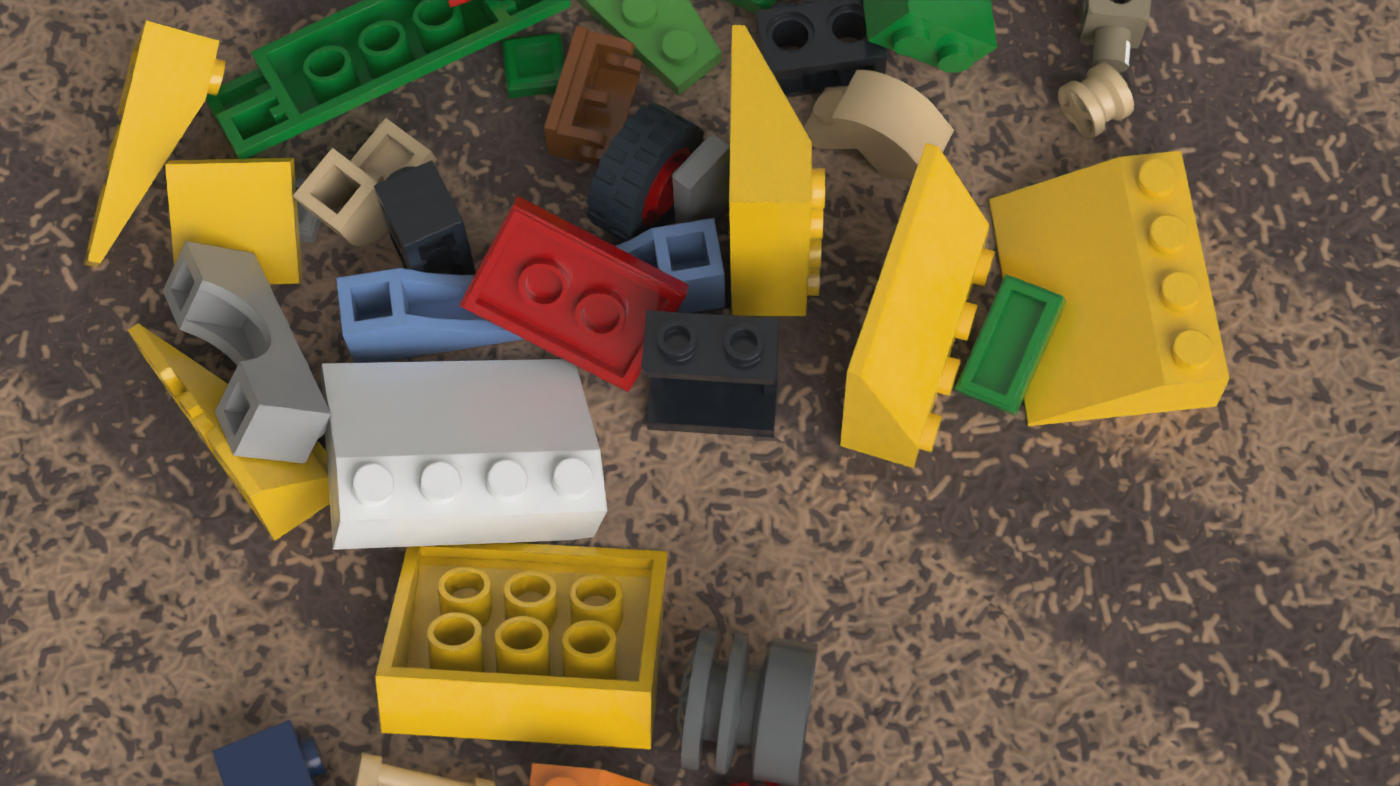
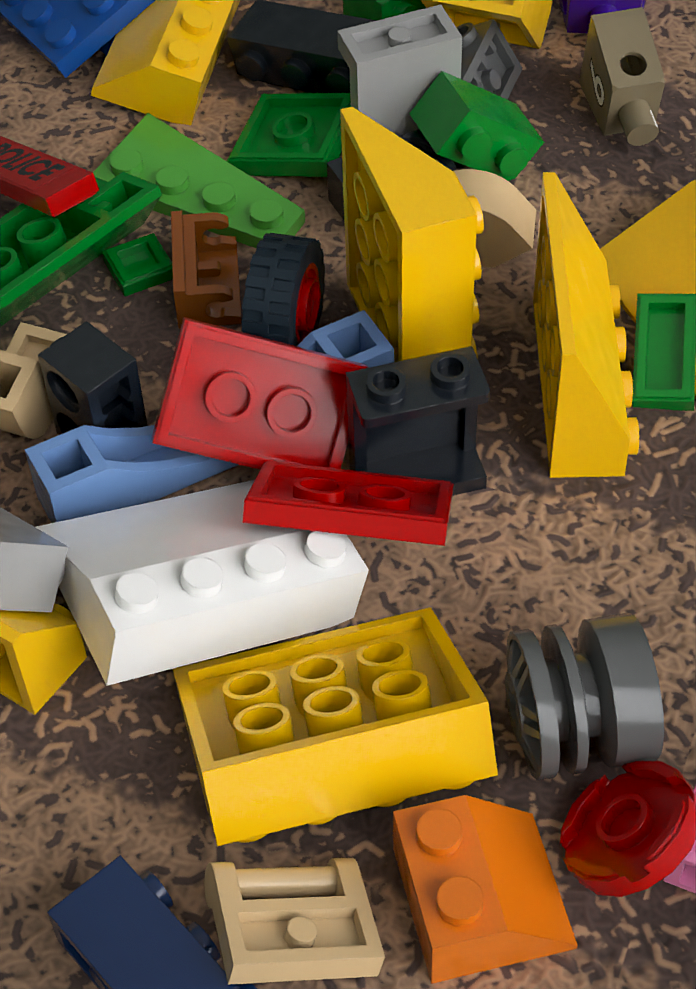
camera: 20 degrees left, 15 degrees down
(619, 432) = (350, 503): none -> red tile
(703, 182) = (340, 282): light grey tile -> none
(1096, 100) = (643, 161): tan wheel -> none

